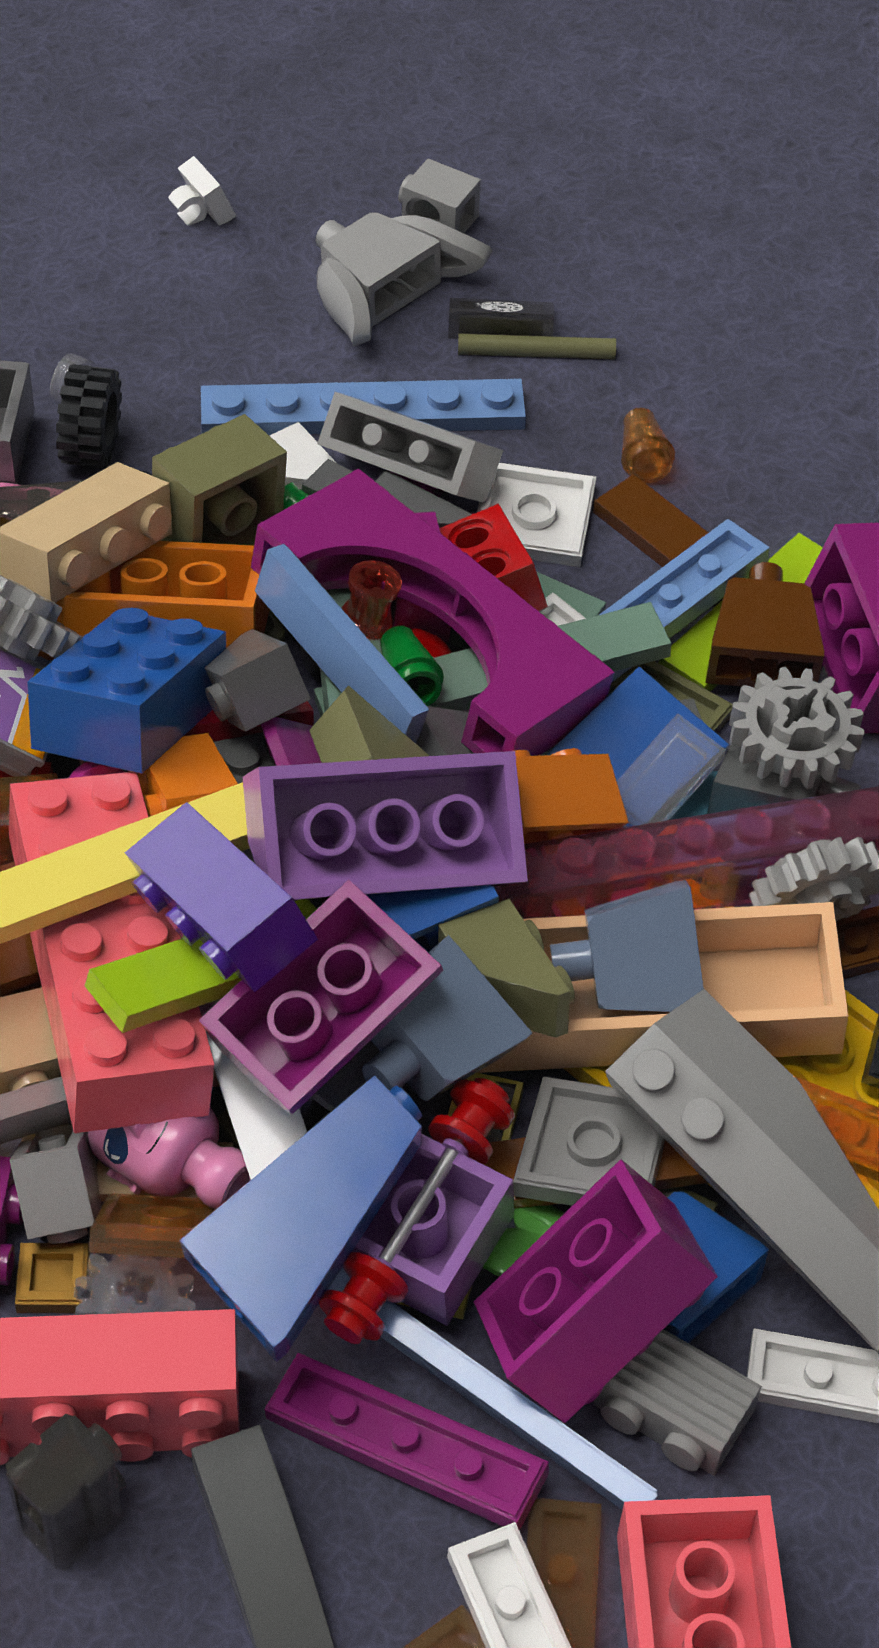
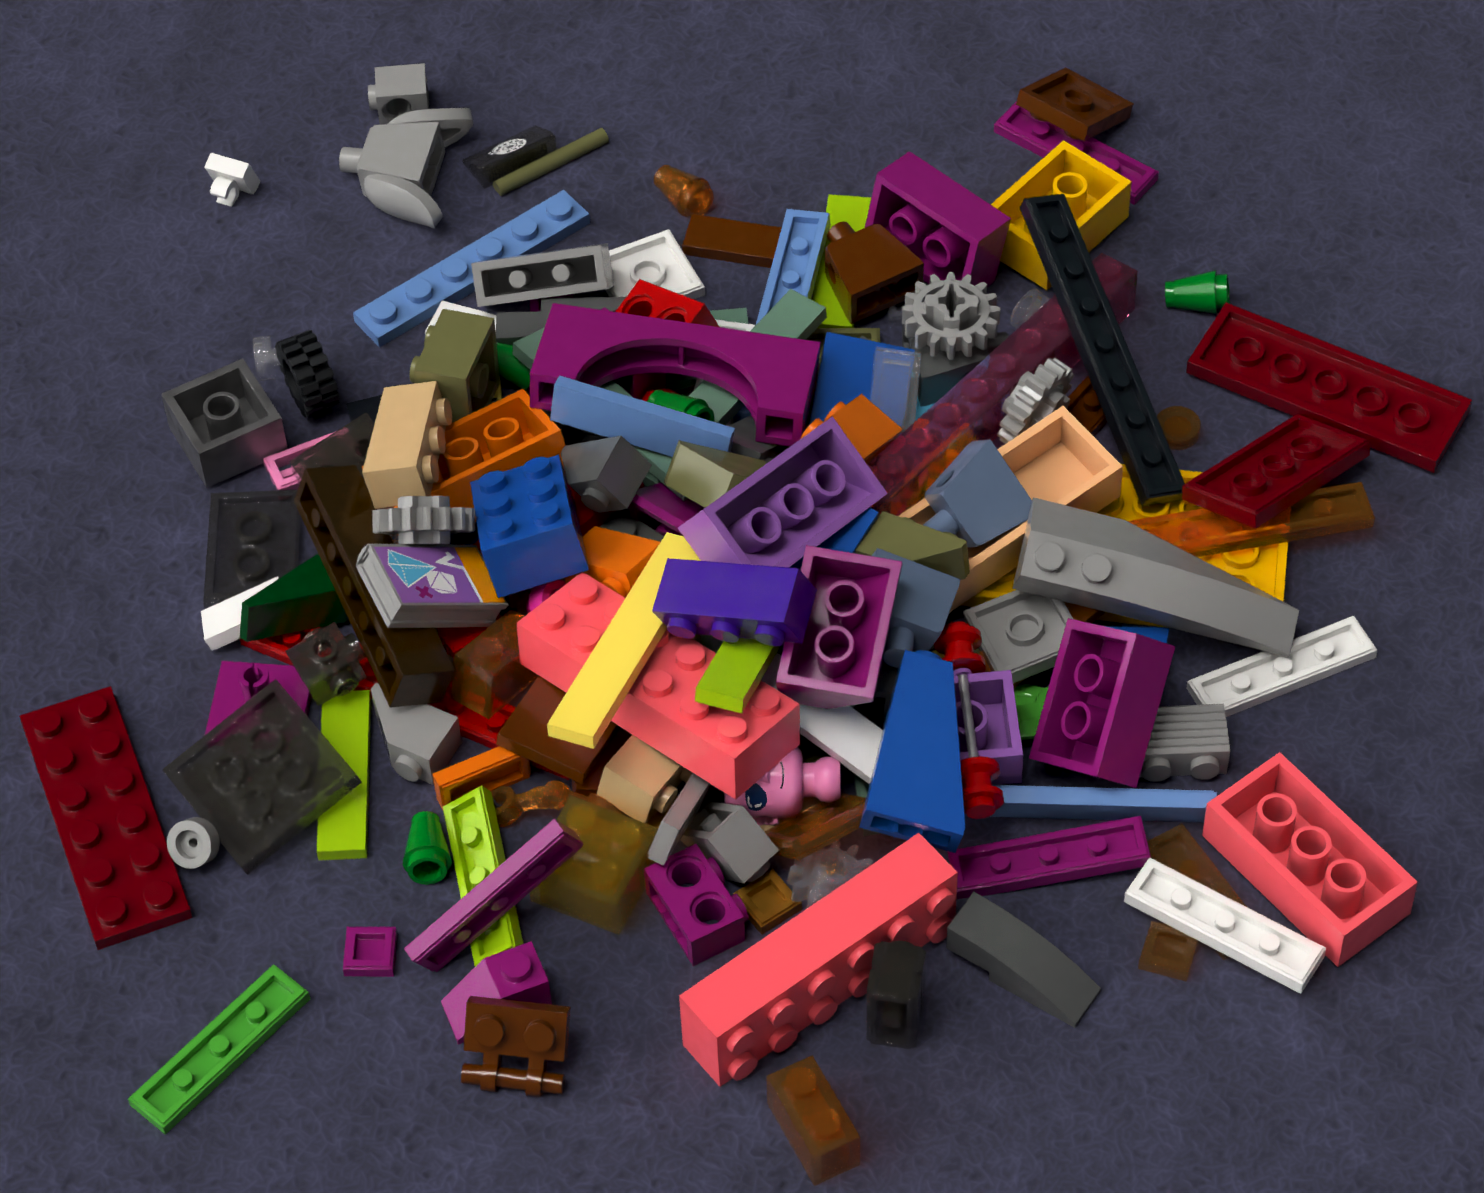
camera: 30 degrees left, 0 degrees up
(370, 599) = (628, 384): clear red bush -> none

